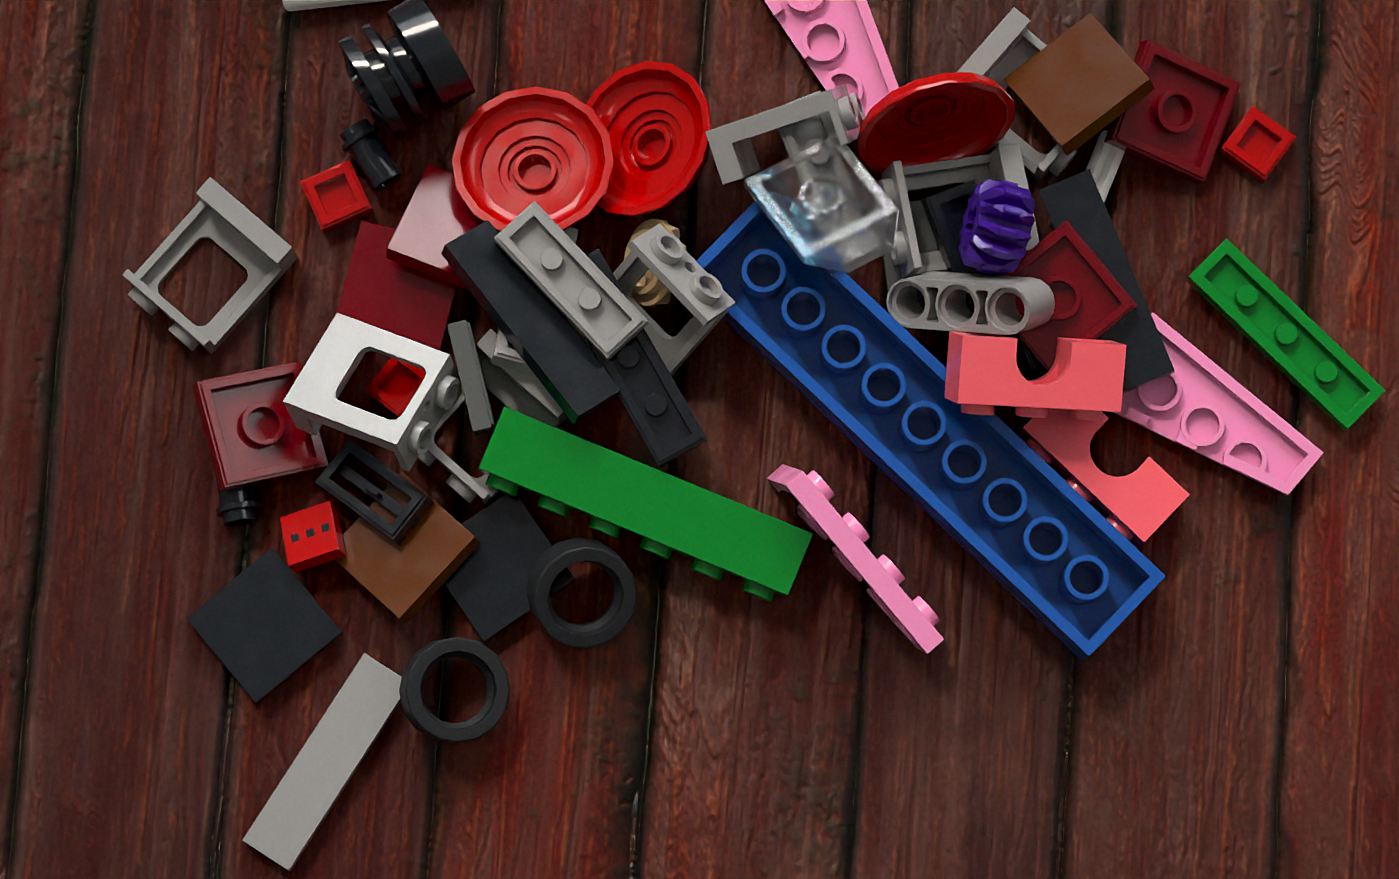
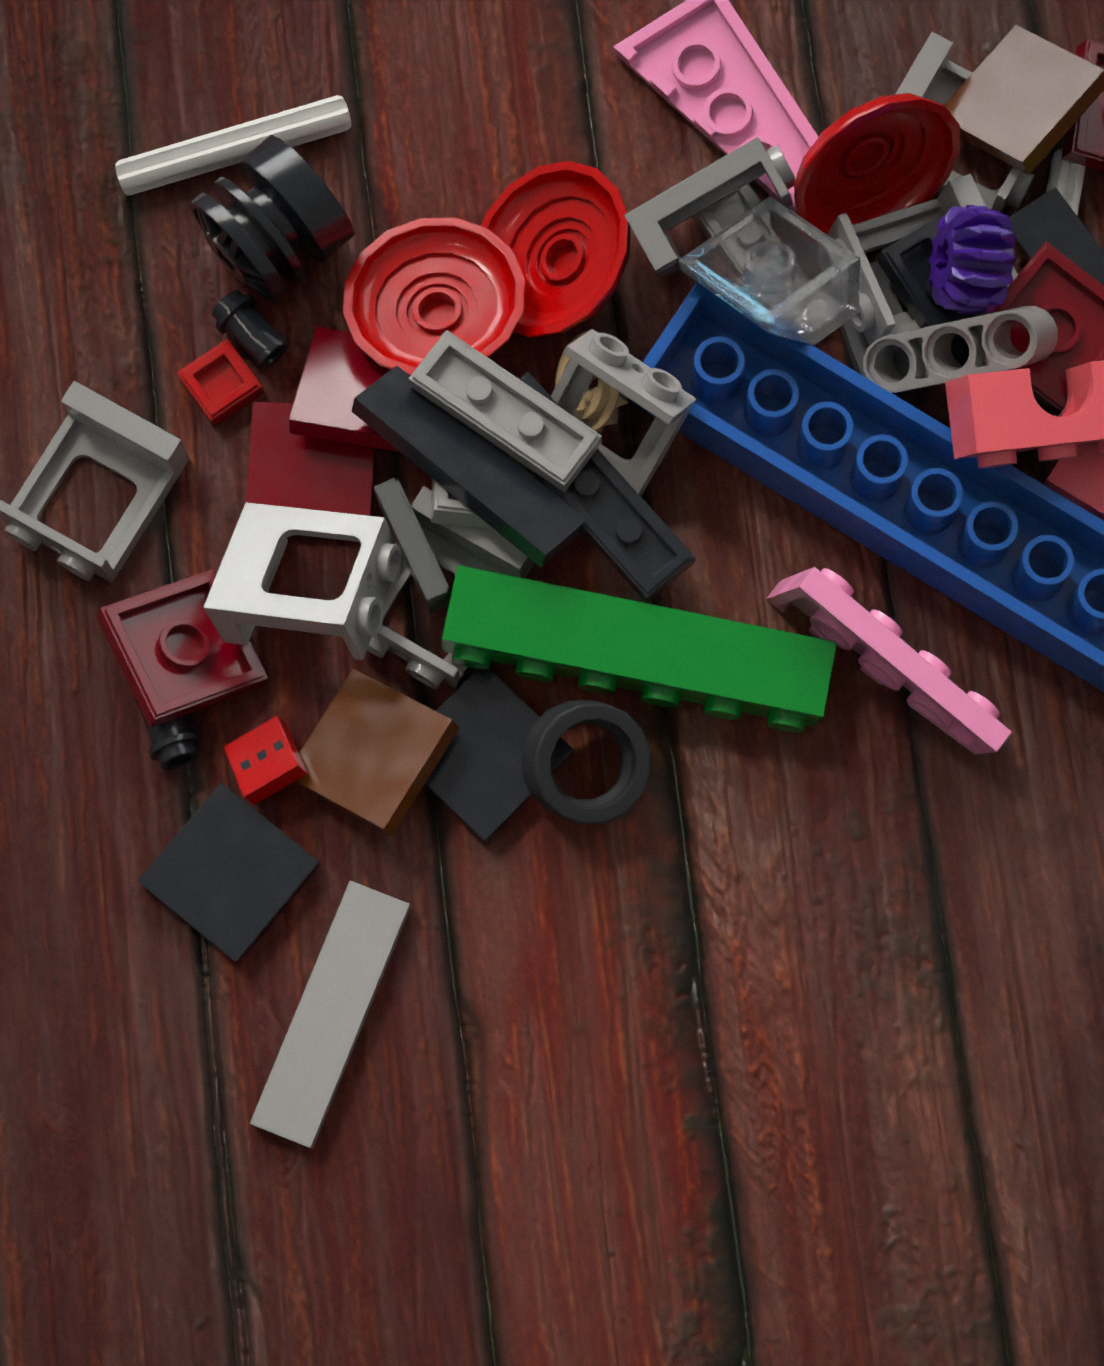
camera: 10 degrees left, 5 degrees down
(396, 385) = (327, 570): red tile -> none
(405, 515) = (366, 714): black tile -> none
(495, 680) = (499, 868): black tyre -> none

